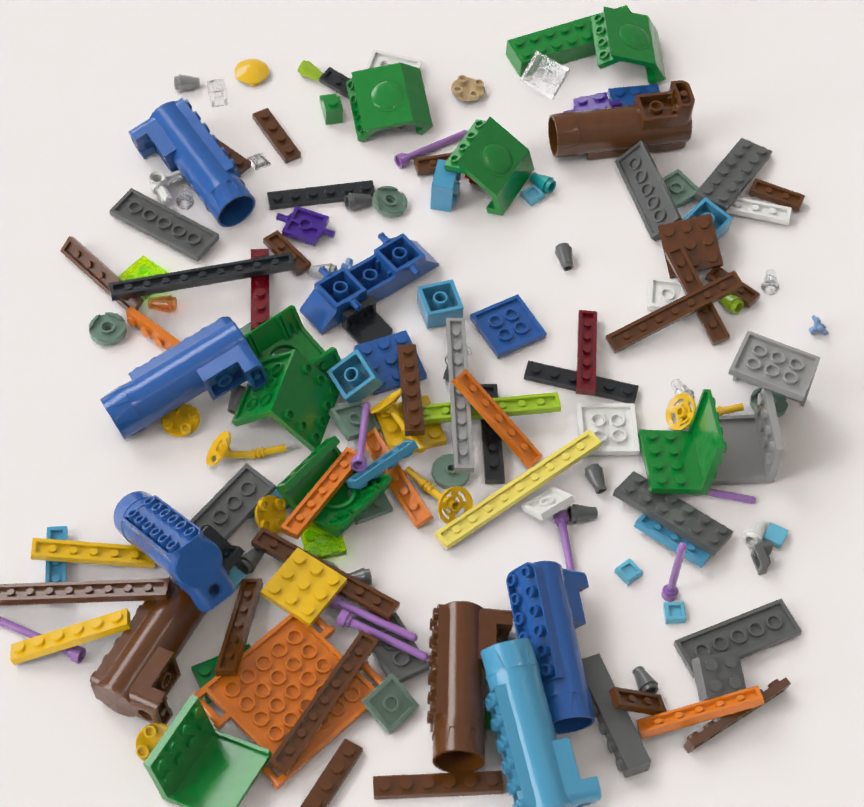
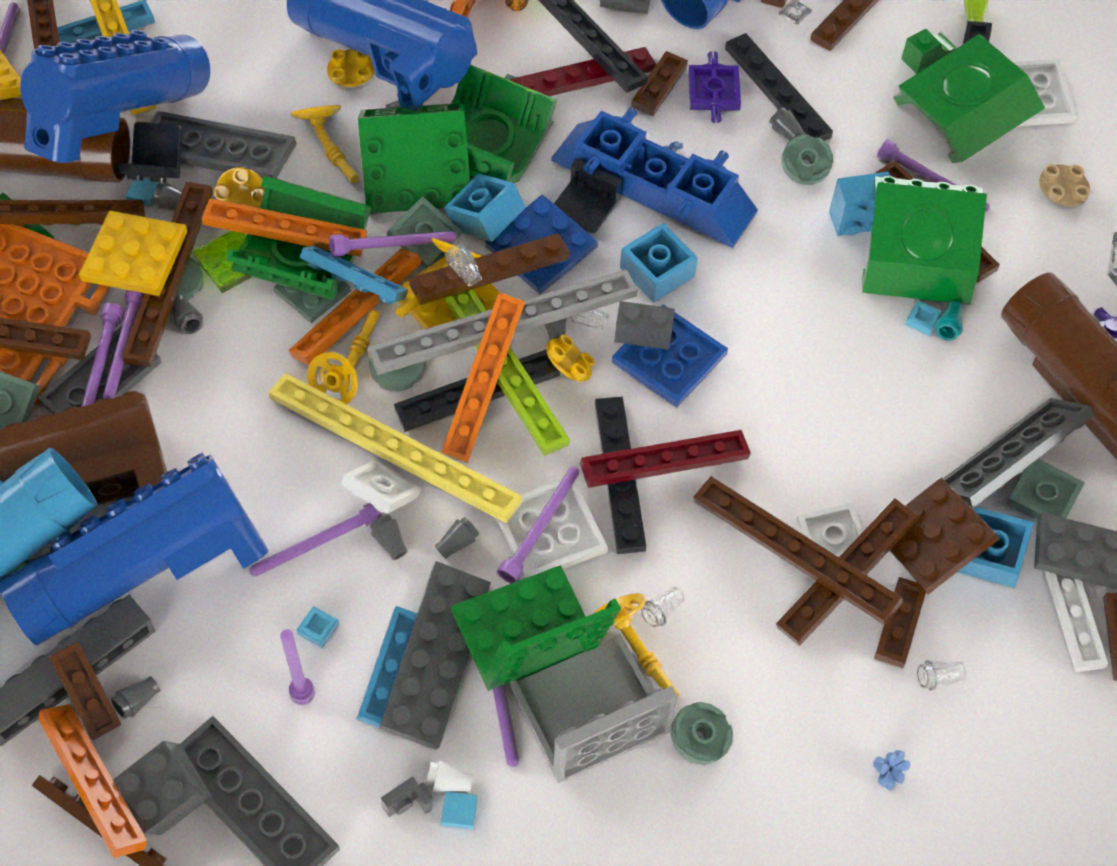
camera: 70 degrees right, 5 degrees up
(314, 270) = (653, 129): light grey cone -> none
(413, 395) = (463, 264): none -> clear cone
(490, 325) = (644, 325): none -> dark grey brick
(492, 375) = (569, 358): none -> yellow dish
(564, 255) = (831, 386): dark grey cone -> none
(633, 454) = (511, 569): none -> medium lavender piece
(674, 612) = (270, 706): medium azure tile -> none
(732, 303) = (866, 631): lime cone -> none
(775, 367) = (713, 694): light grey bracket -> none

